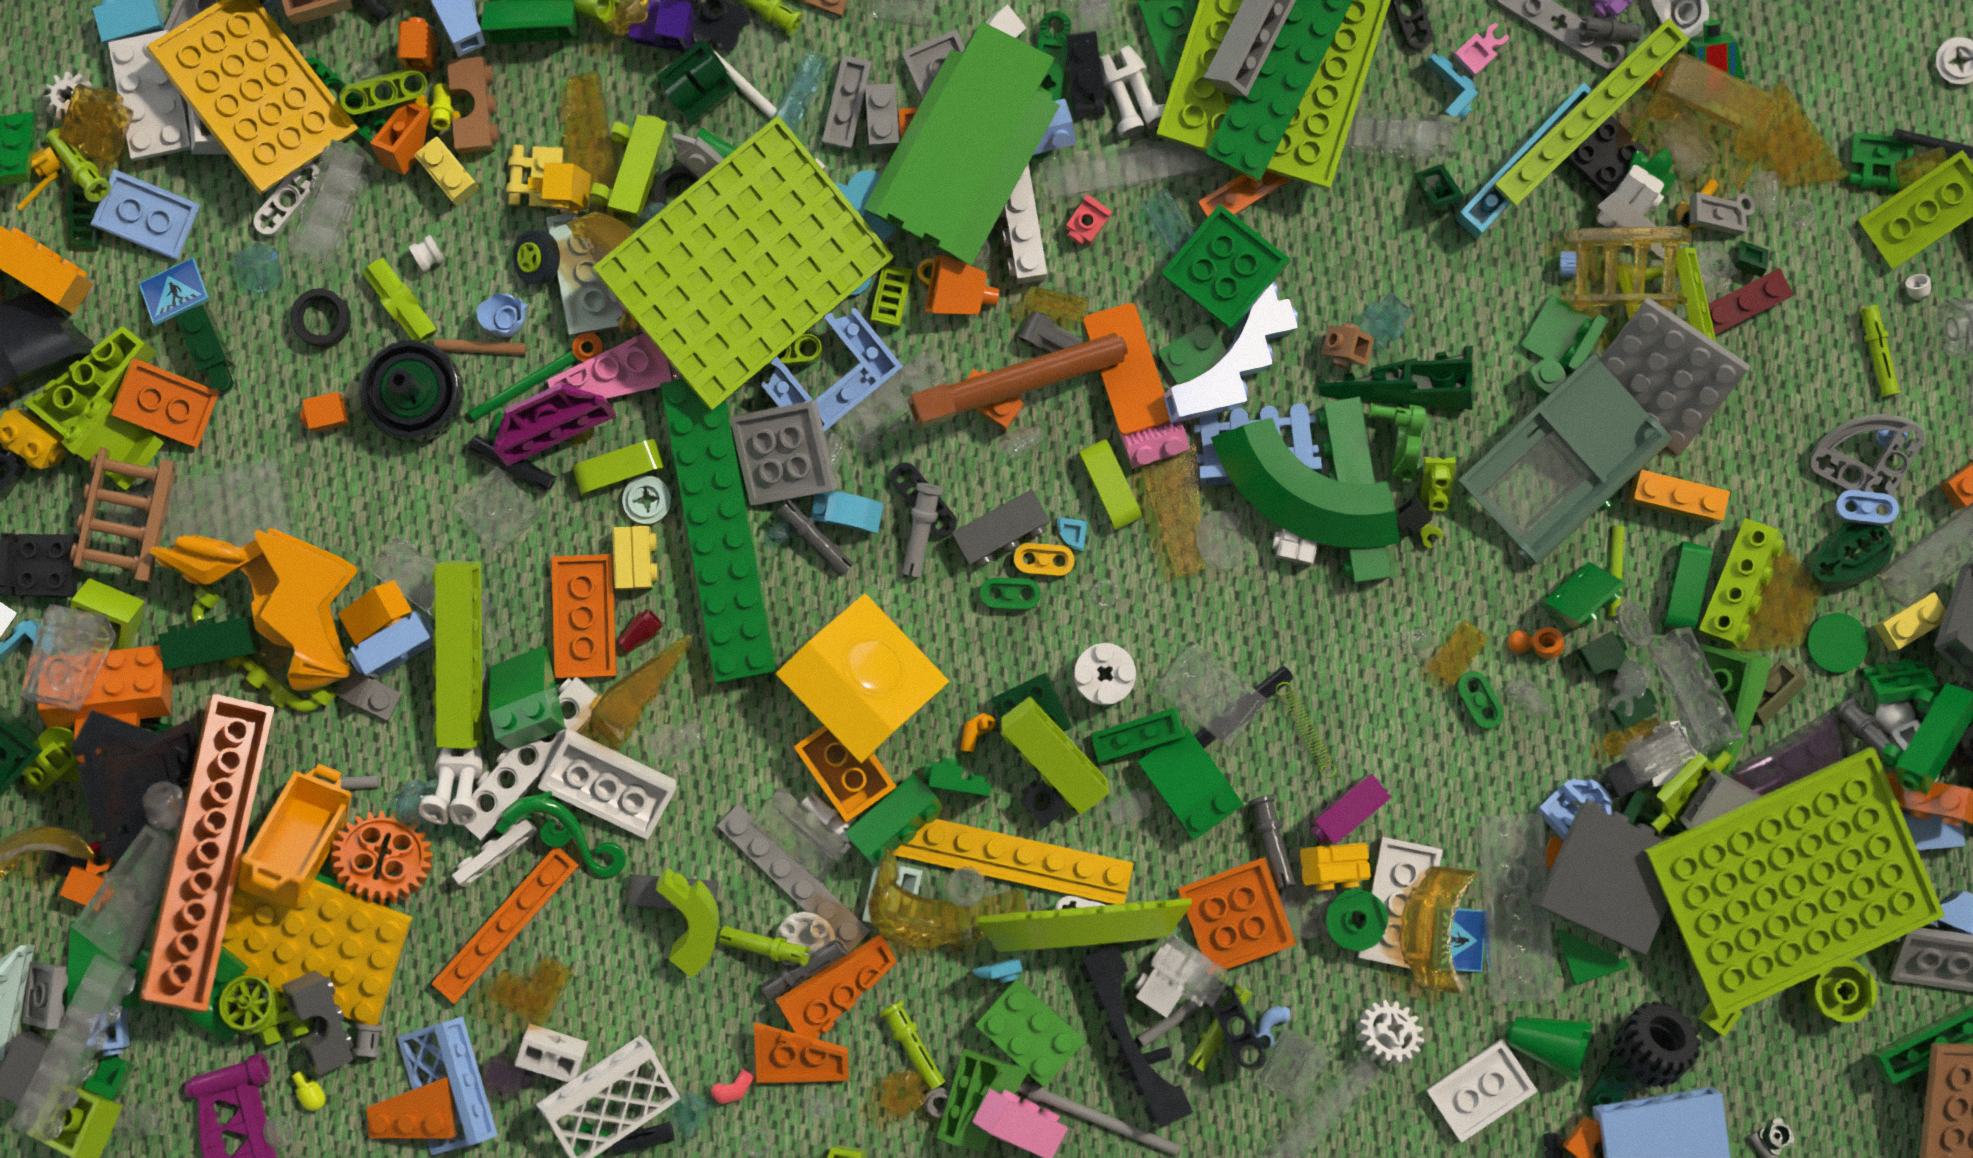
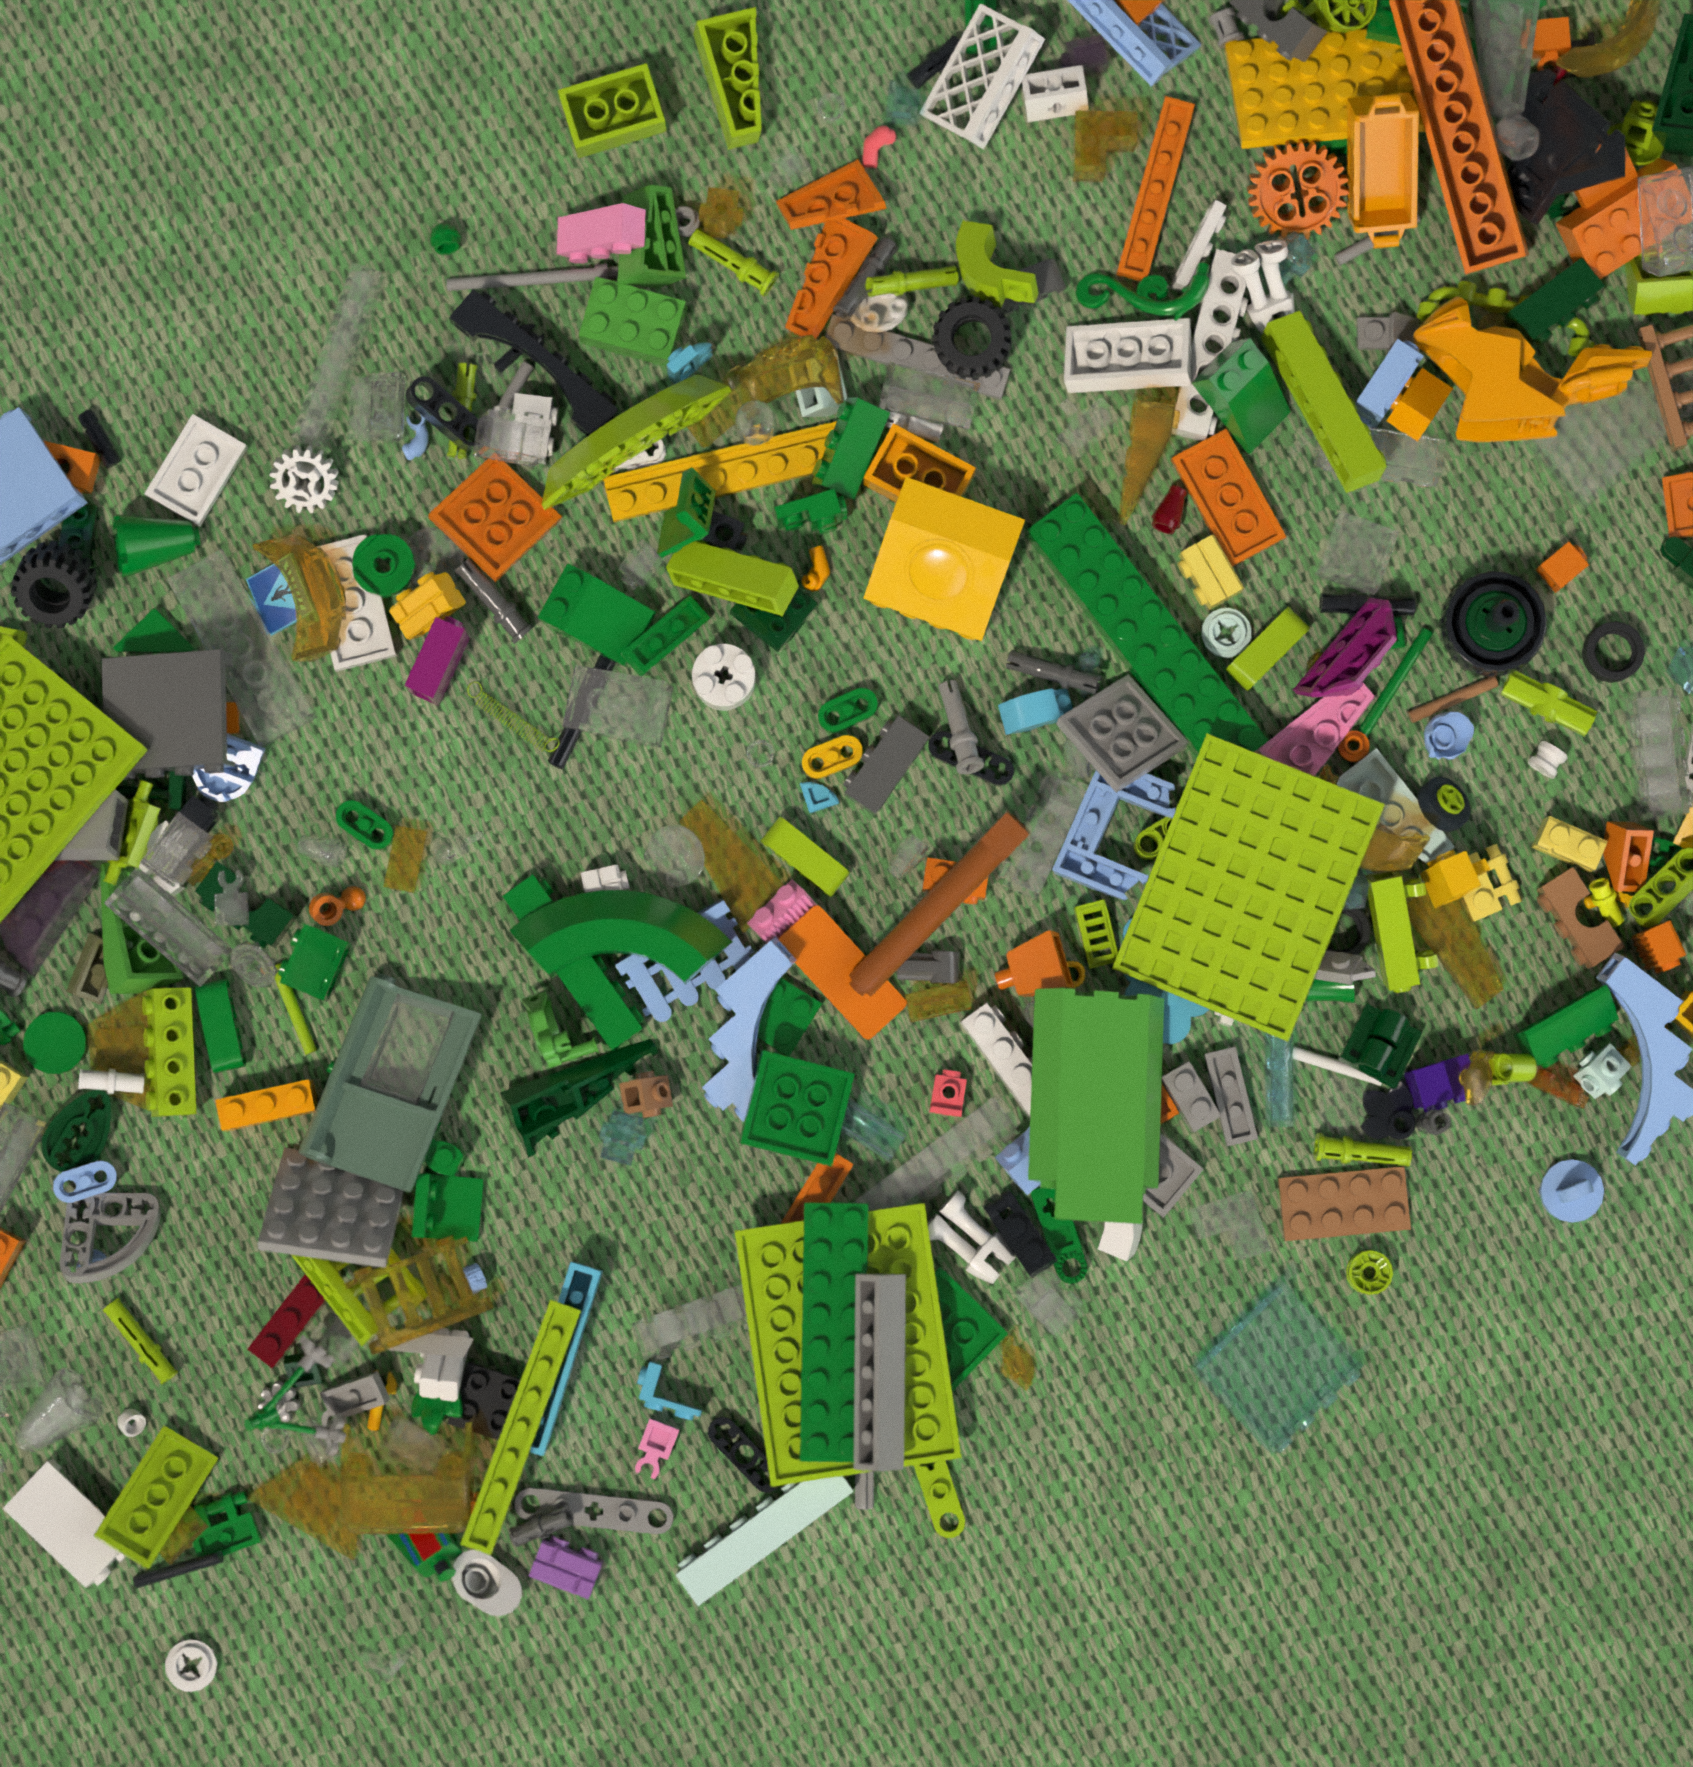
camera: 150 degrees right, 0 degrees up
(738, 891) = (960, 314): none -> black tyre
(1068, 827) = (690, 517): none -> green bracket
(1417, 516) = (504, 965): pearl dark grey piece -> none
(1437, 482) = (500, 1006): lime hips -> none
(1438, 190) = (633, 1290): dark green slope -> none
(1783, 240) = (279, 1403): none -> light grey plant
(1805, 581) = (111, 1081): none -> white pin

